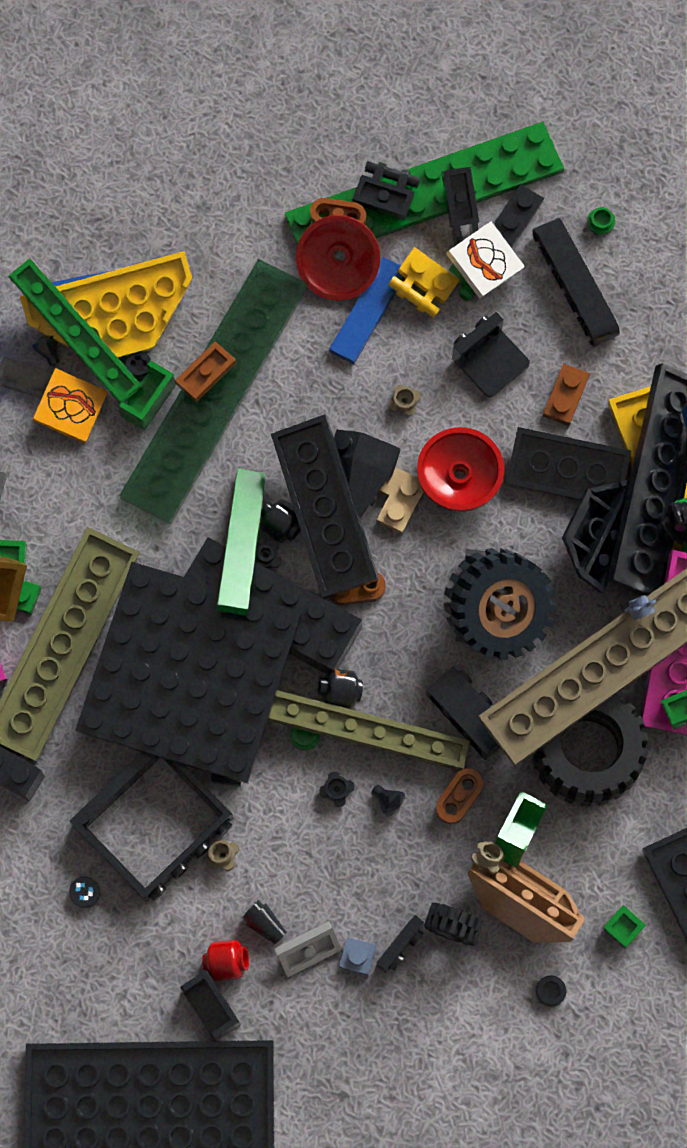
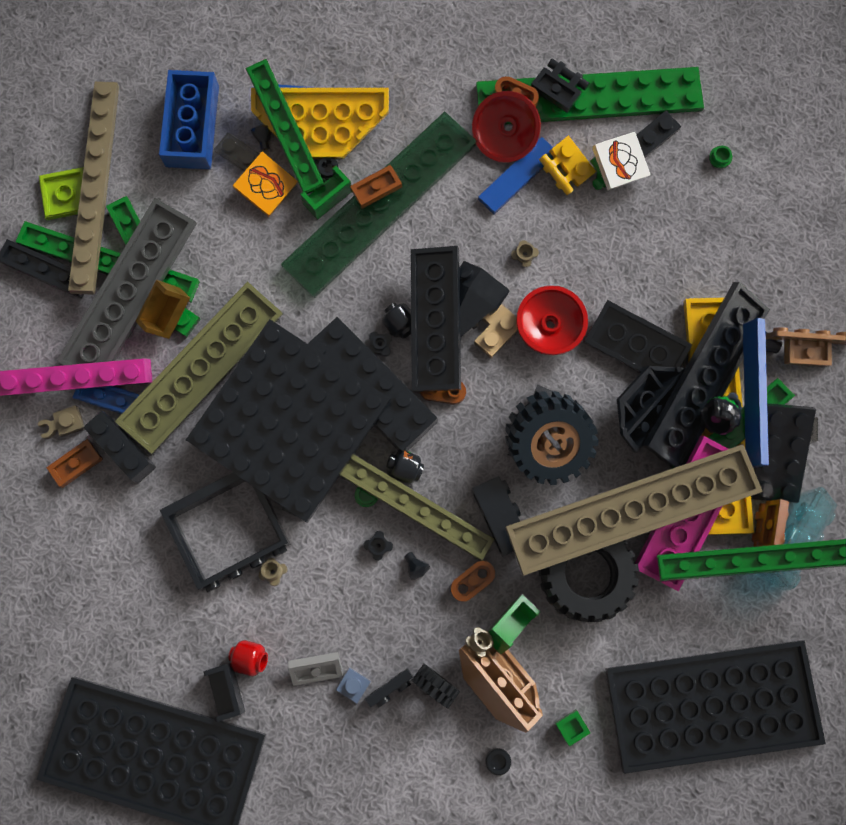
camera: 15 degrees right, 5 degrees up
(84, 892) = (157, 568): black tile -> none
(241, 542) = (360, 329): tile -> none
(264, 922) = (288, 636): black cone -> none
(460, 201) = (615, 109): black hinge -> none
(489, 356) = (601, 237): black bracket -> none
(566, 394) = (653, 285): dark orange plate -> none
(577, 281) = (688, 199): black beam -> none
(641, 607) = (665, 477): sand blue plate -> none

